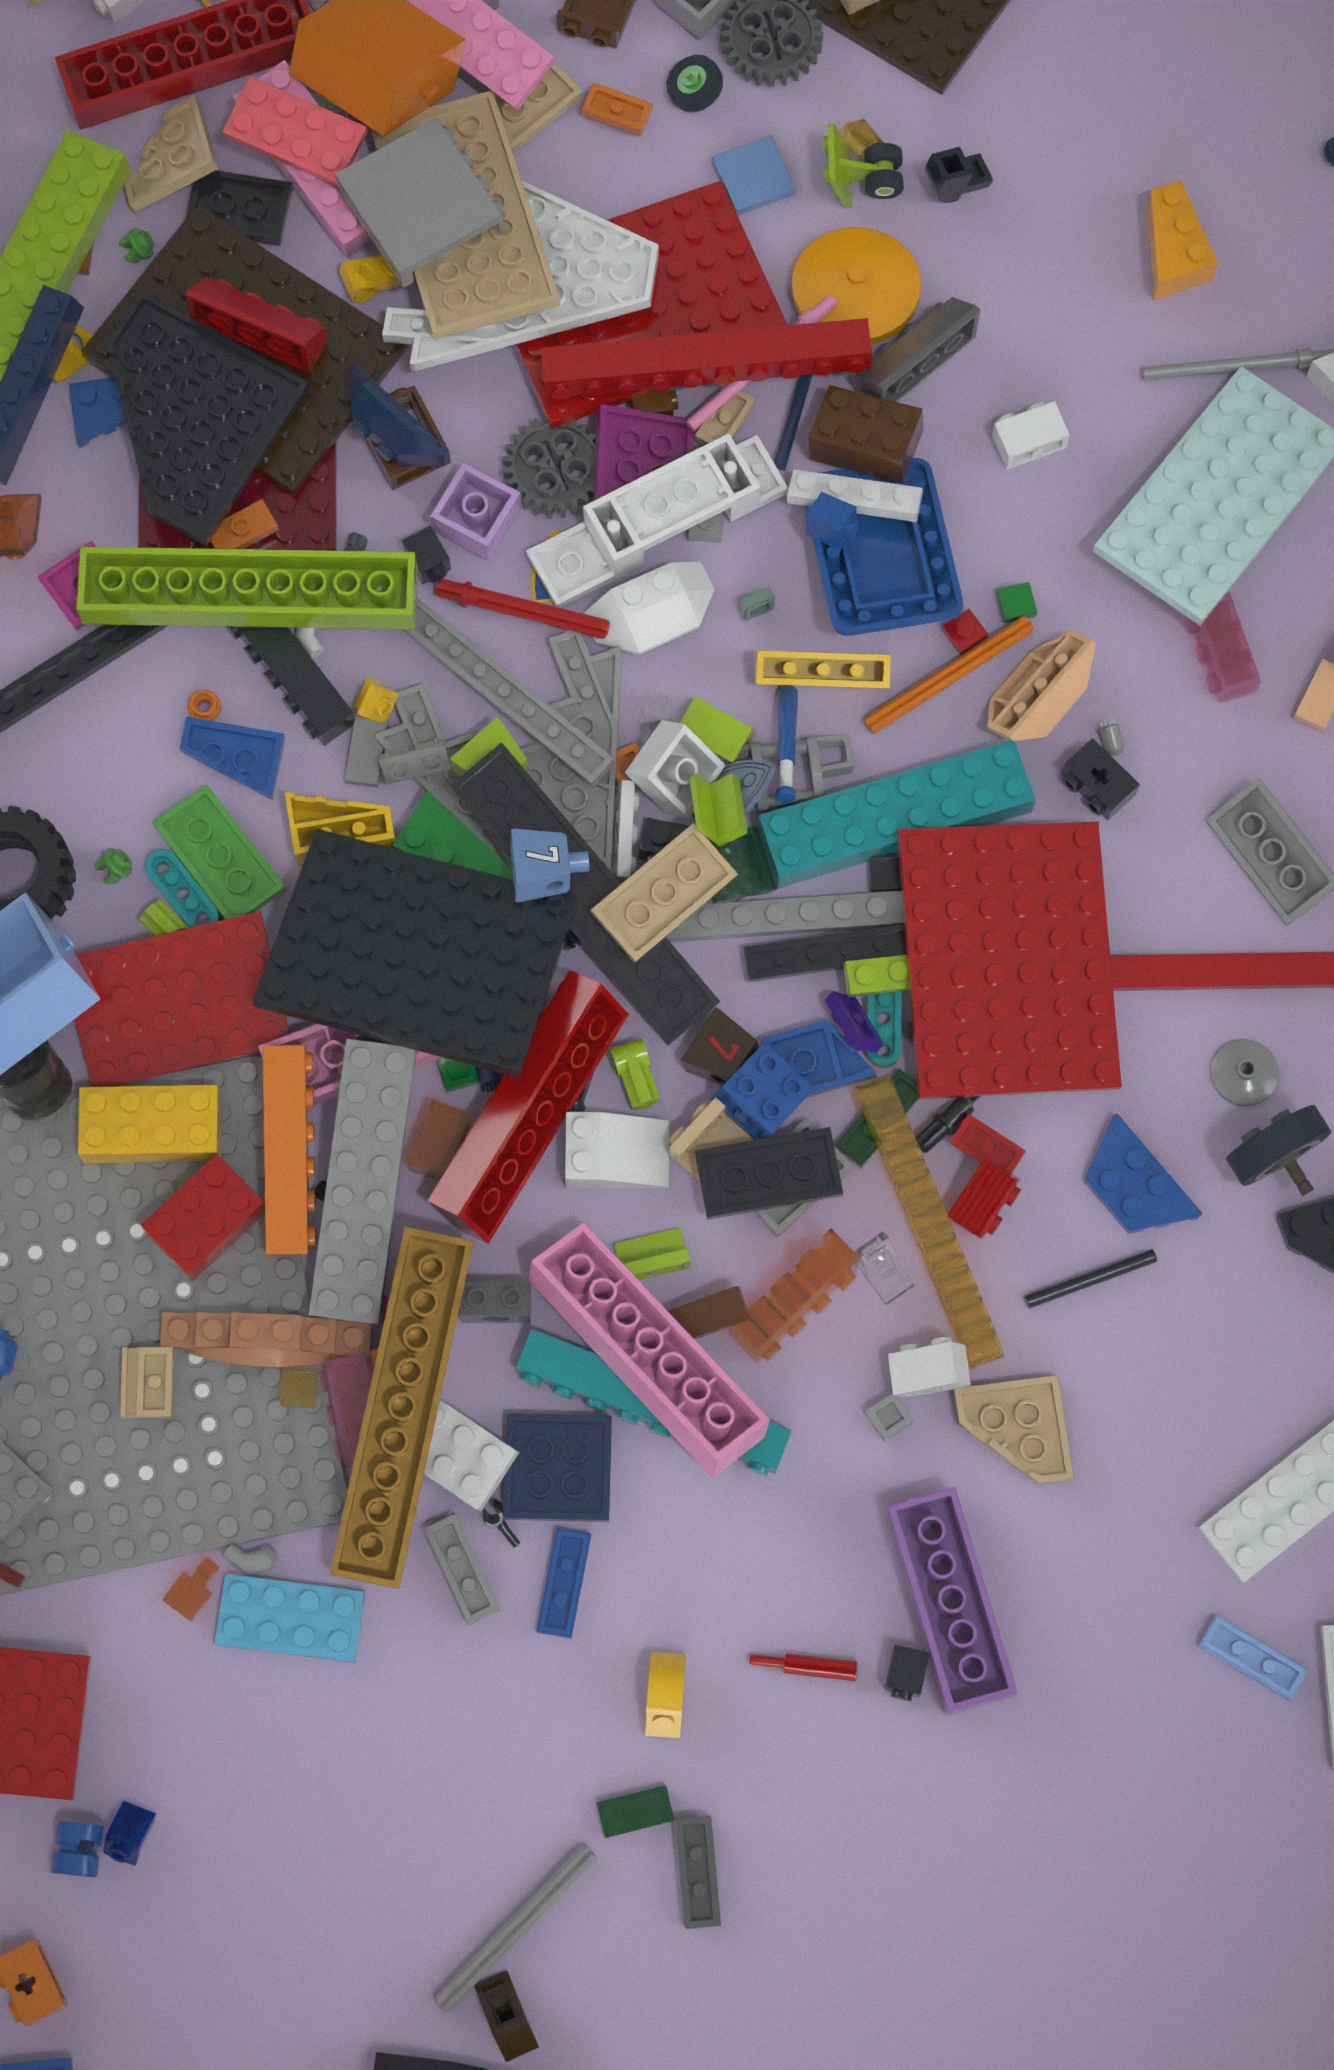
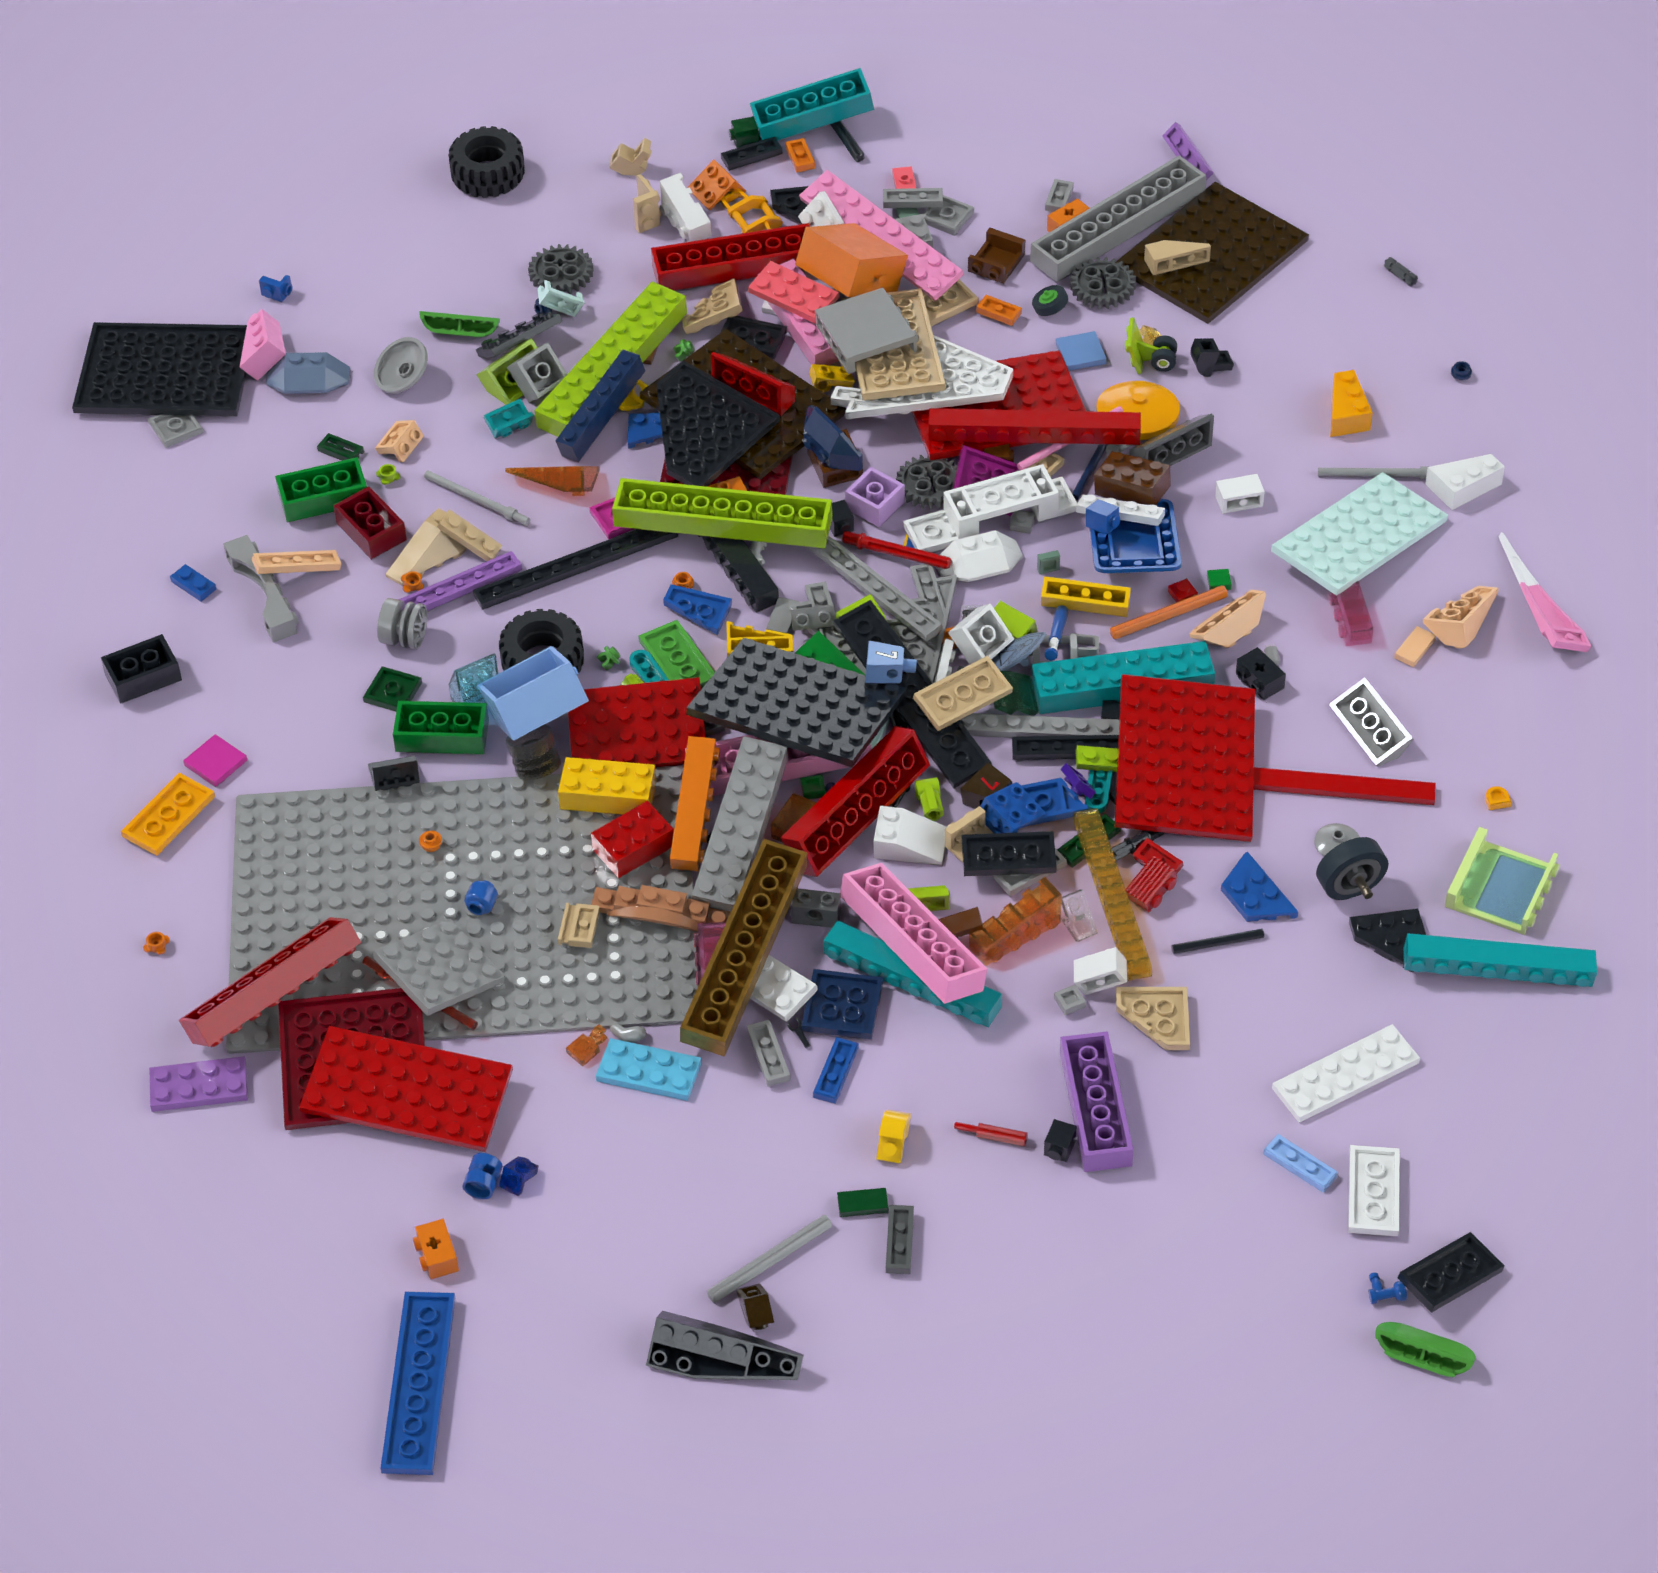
camera: 10 degrees right, 25 degrees down
(298, 1389) = (677, 941): clear yellow tile -> none
(375, 701) = (793, 585): yellow bracket -> none
(719, 808) = (1006, 656): lime panel -> none

